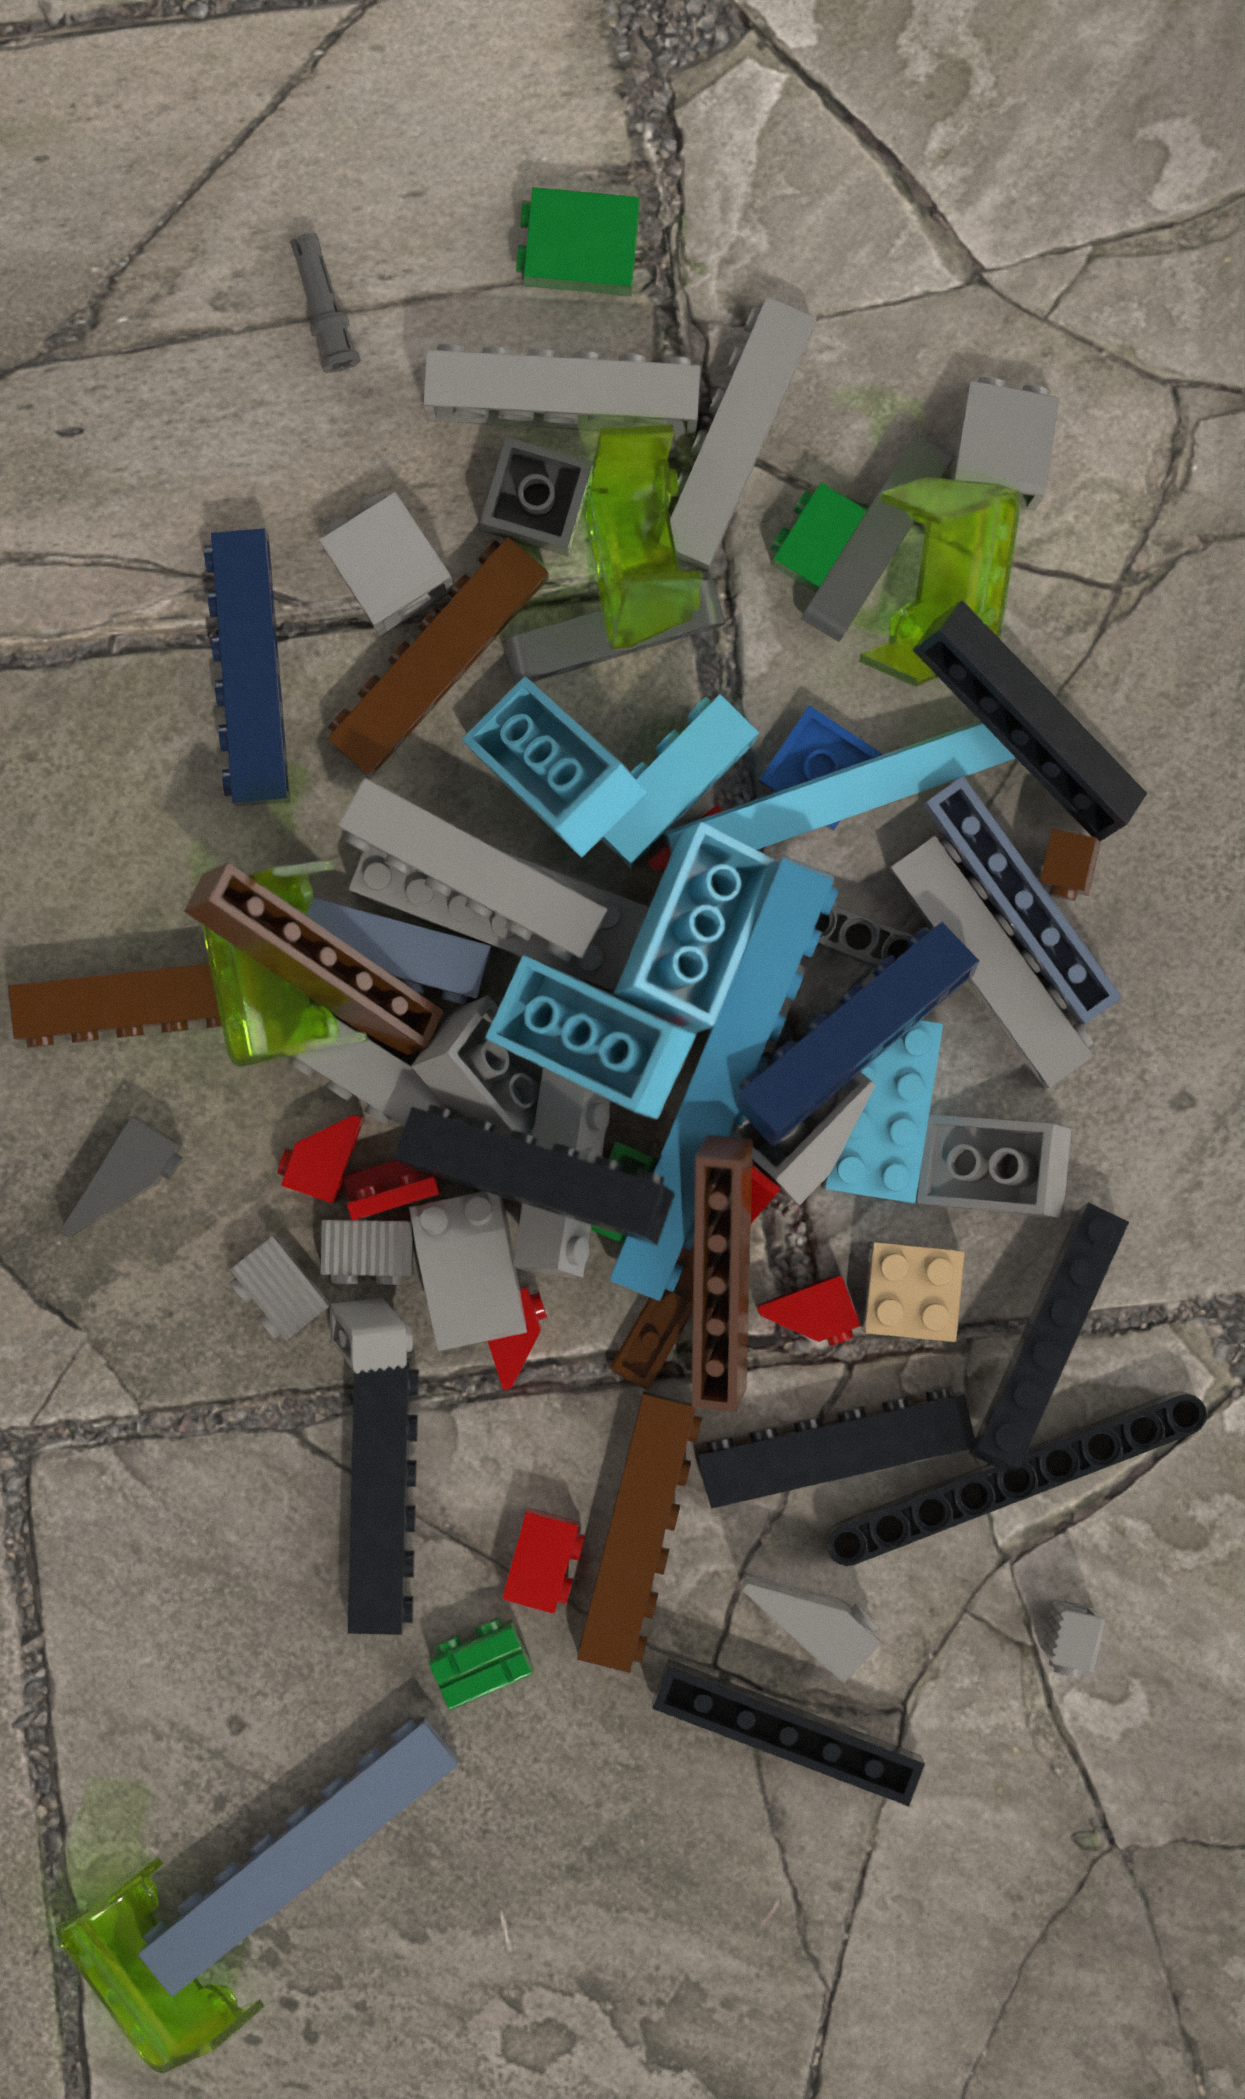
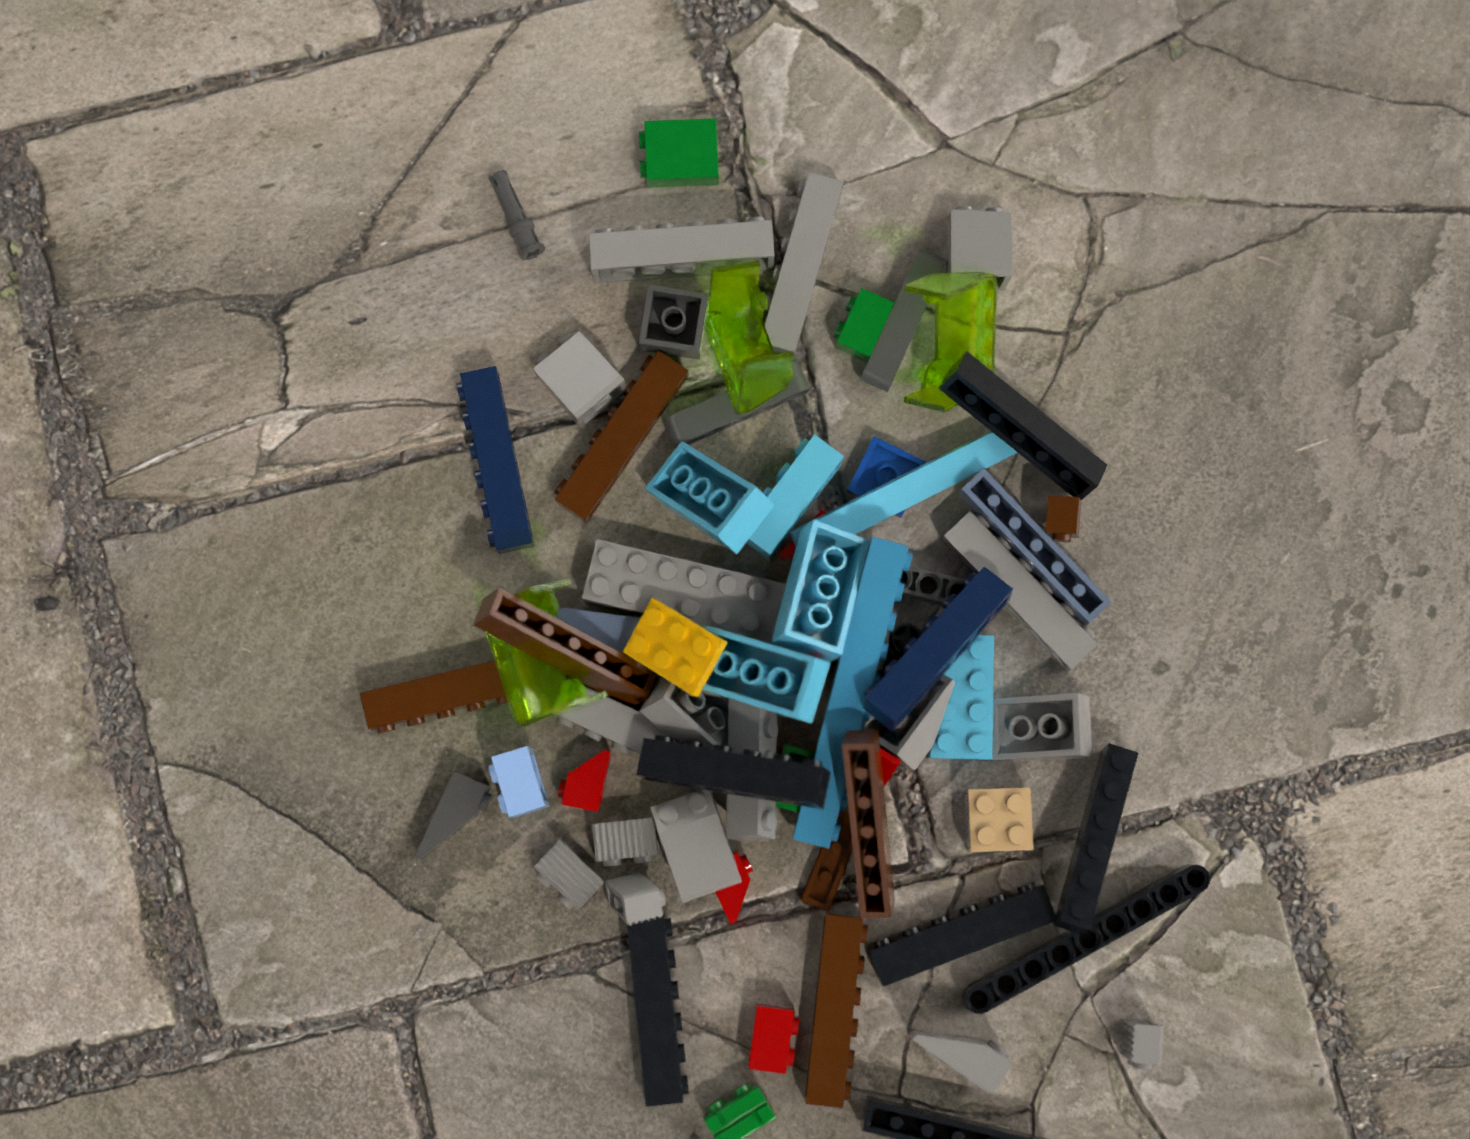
camera: 10 degrees left, 5 degrees down
(223, 1145) = (519, 782): none -> light blue brick
(387, 1188) = (633, 797): red bracket -> none
(472, 869) = (663, 572): light grey brick -> none
(474, 980) = (675, 647): none -> yellow plate
(812, 1004) = (903, 634): none -> pearl dark grey wheel
(815, 1311) = (935, 842): red slope -> none

